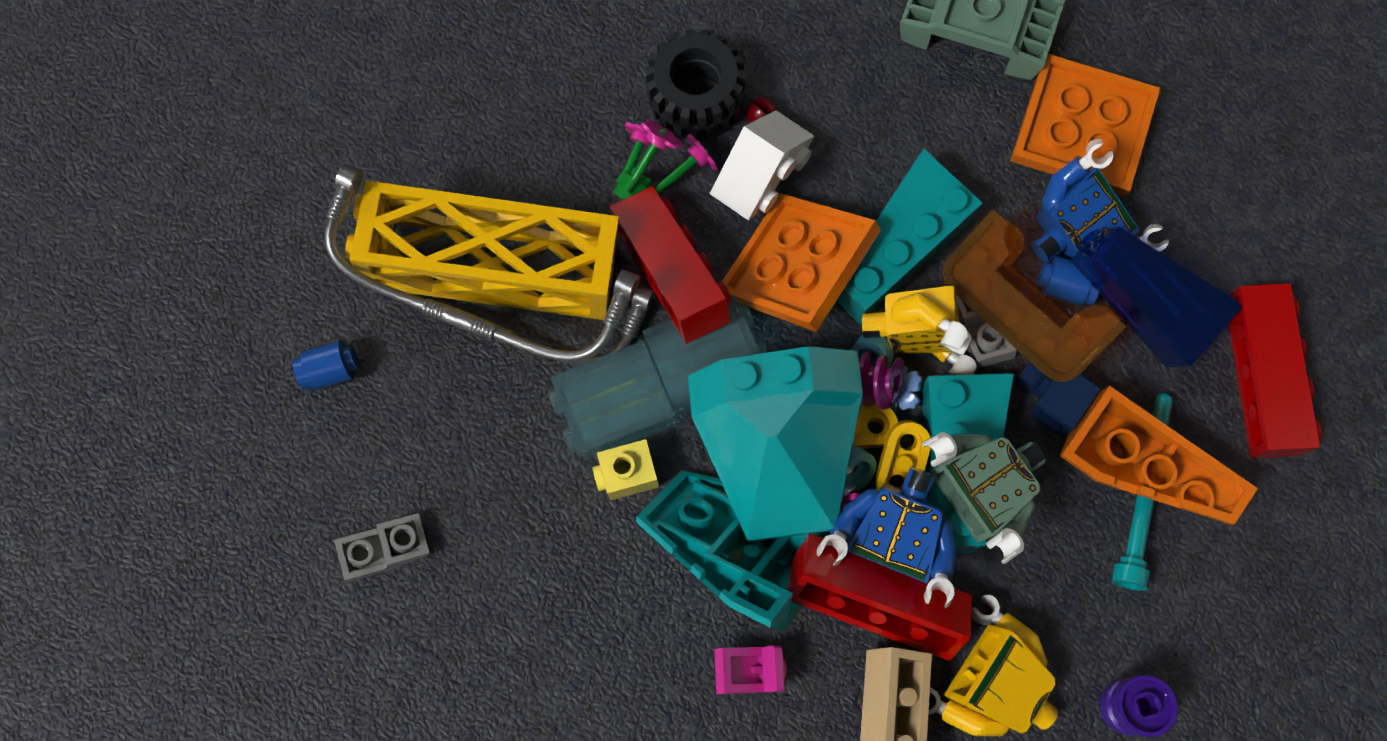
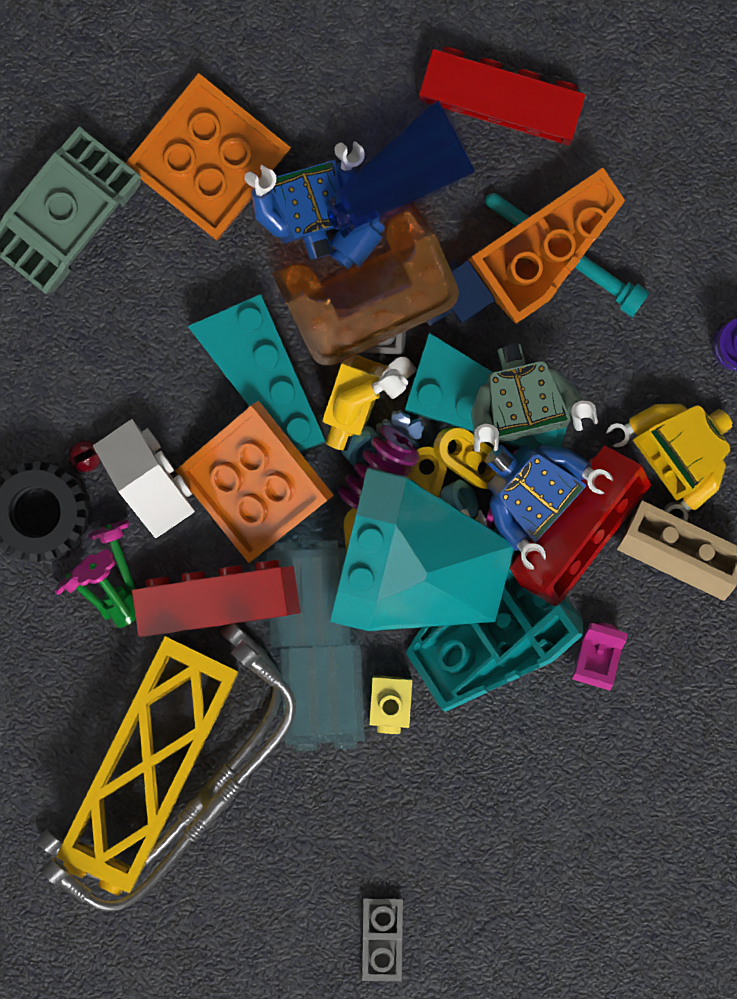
camera: 75 degrees left, 15 degrees up
(325, 365) = (196, 944): blue brick -> none

